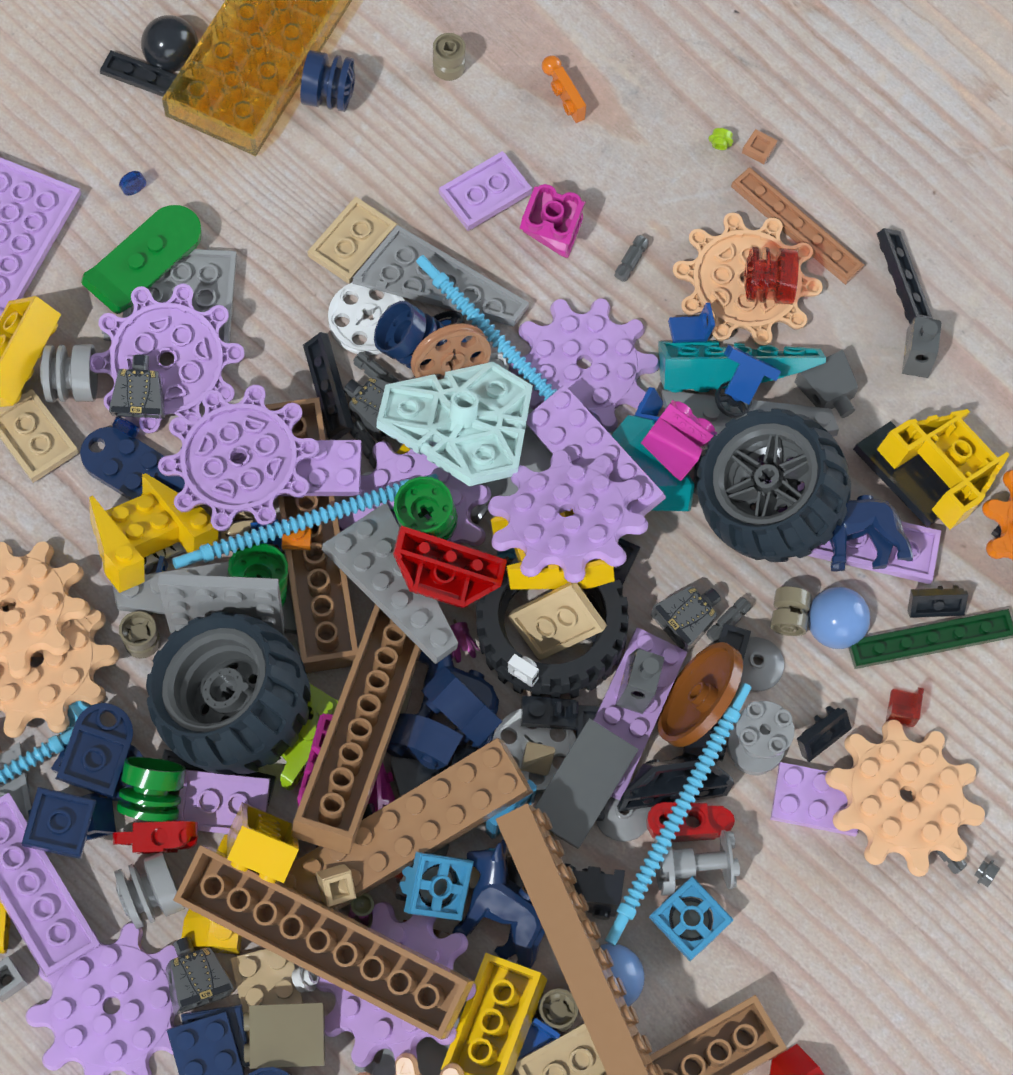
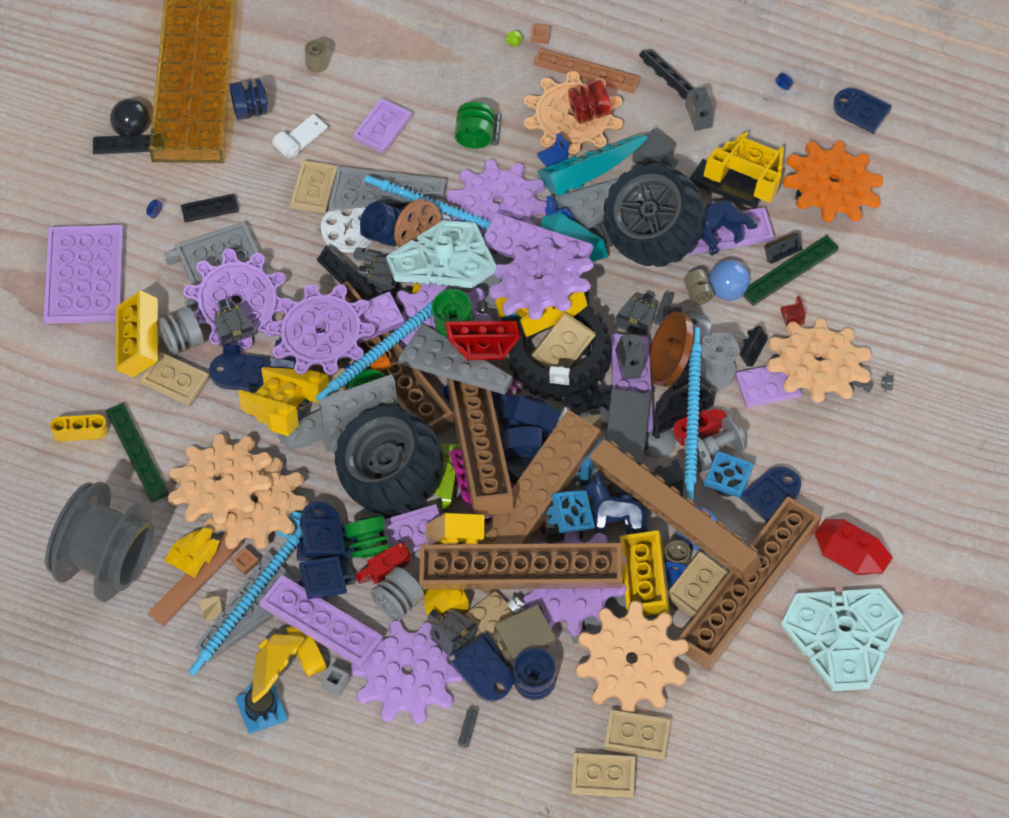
camera: 20 degrees left, 10 degrees down
(139, 634) = (309, 460): dark tan wheel -> none
(144, 256) = (189, 246): green piece -> none
(211, 212) = (209, 208): none -> black tile
(336, 885) = (512, 533): tan slope -> none
(359, 166) = (299, 138): none -> white door
(553, 218) = (435, 124): dark pink piece -> none
(564, 87) = (400, 47): orange plate -> none
(603, 242) = (474, 125): none -> green wheel
(678, 438) = (583, 212): dark pink piece -> none
(740, 970) = (770, 491): none -> dark blue plate
(744, 381) = (604, 168): blue piece -> none

